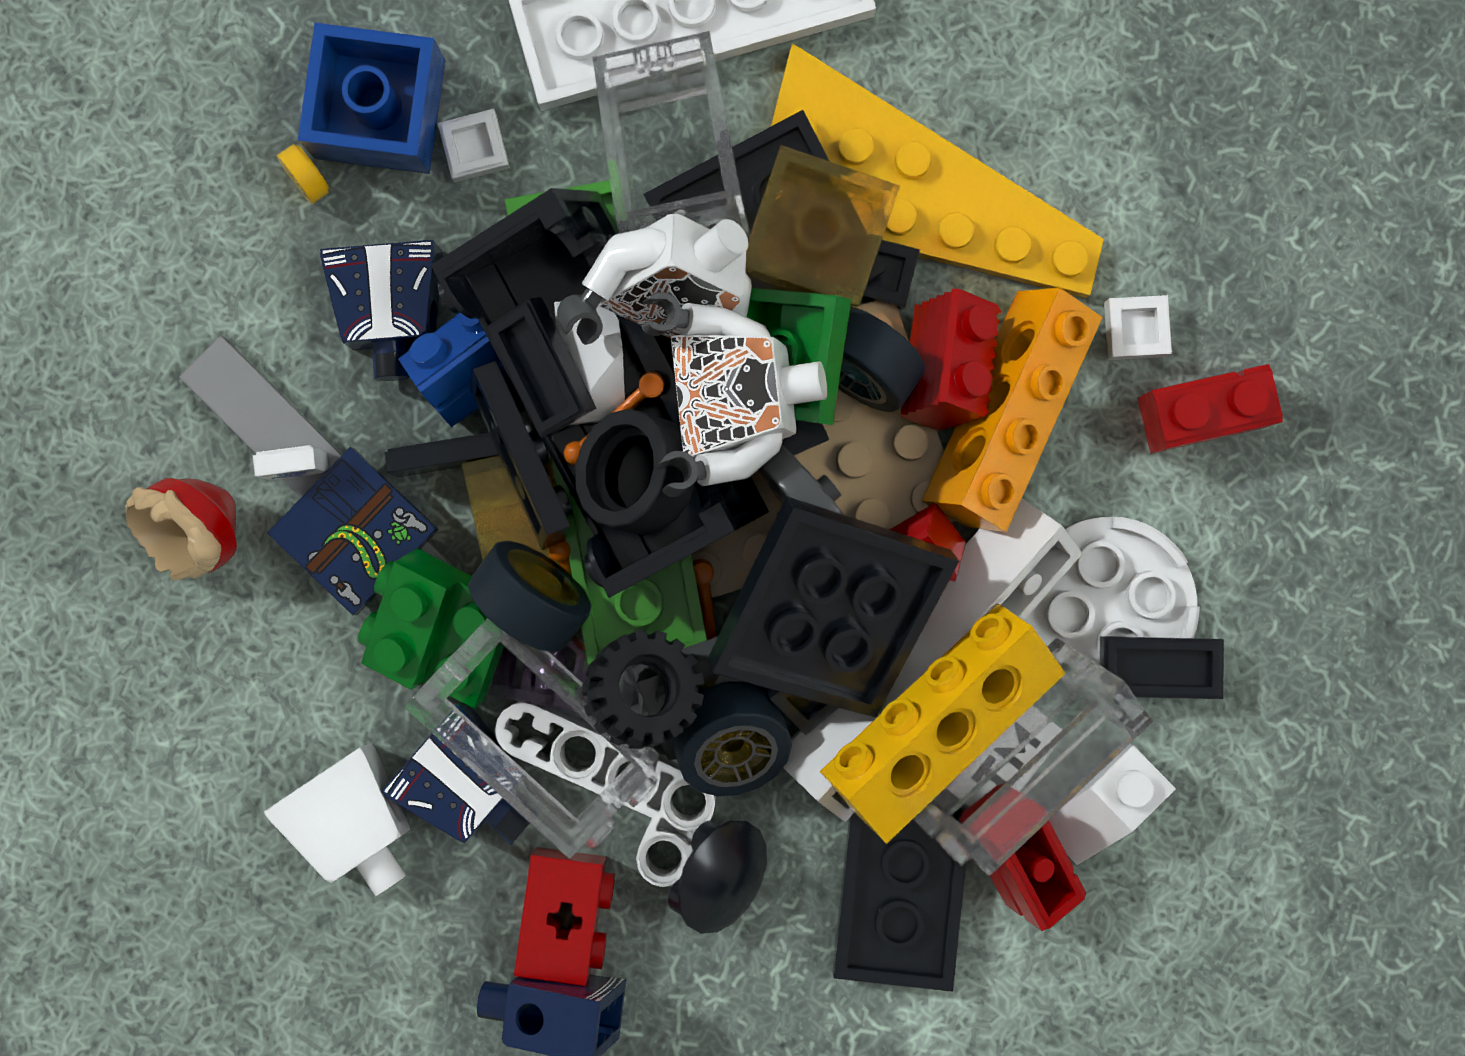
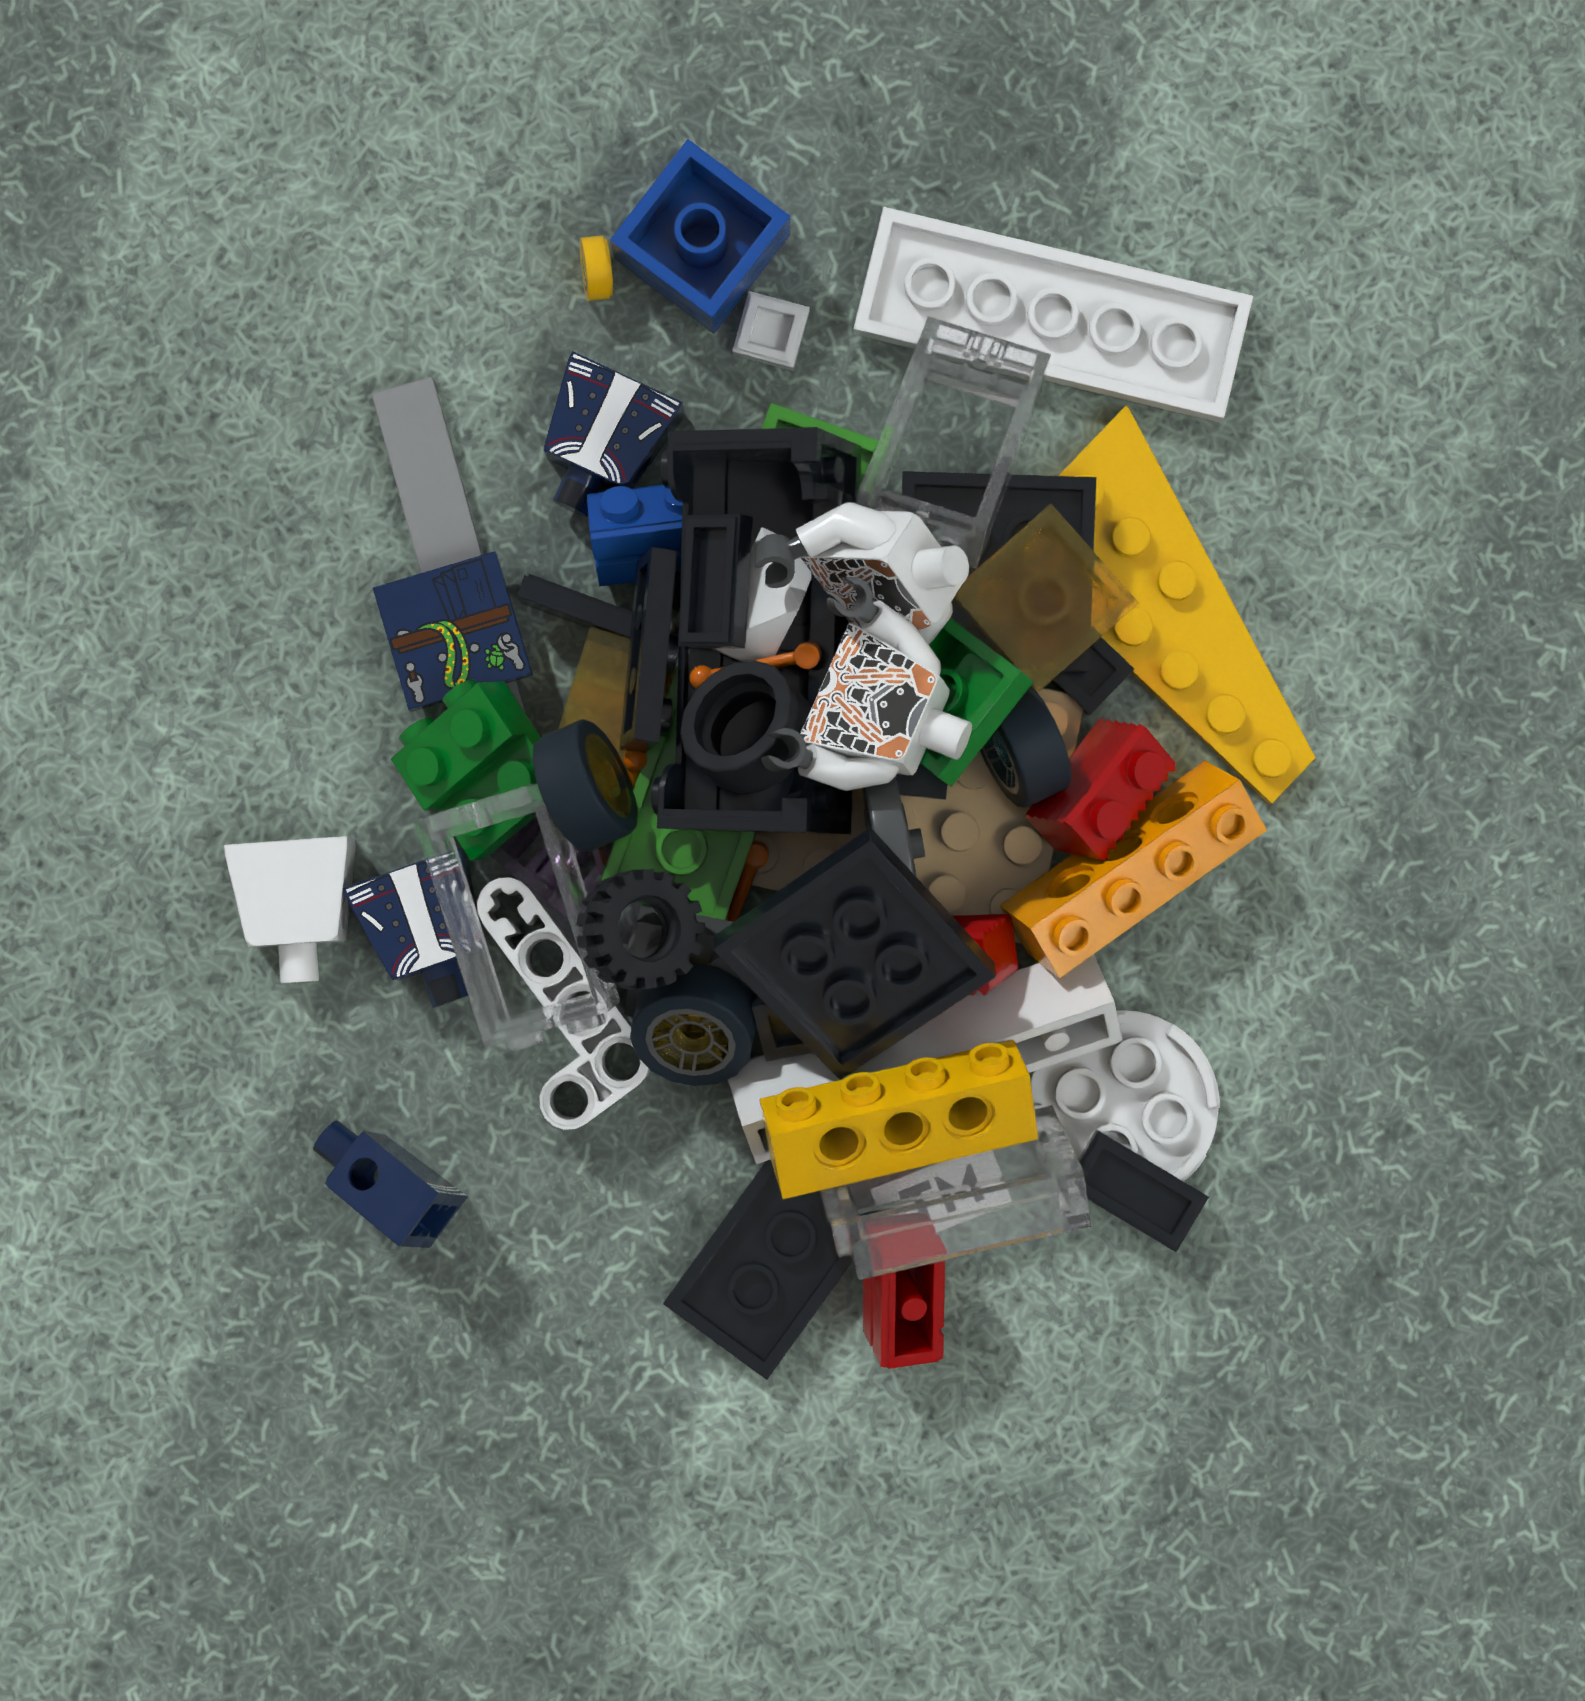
camera: 30 degrees right, 0 degrees up
(184, 525) = (298, 537): tan hair -> none
(290, 462) = (432, 535): white tile -> none
(543, 946) = (410, 1117): red brick -> none
(719, 875) = (612, 1147): black dish -> none
(1110, 805) = (1010, 1287): white slope -> none
(1137, 327) = (1299, 859): white plate -> none
(1210, 408) = (1321, 974): red brick -> none

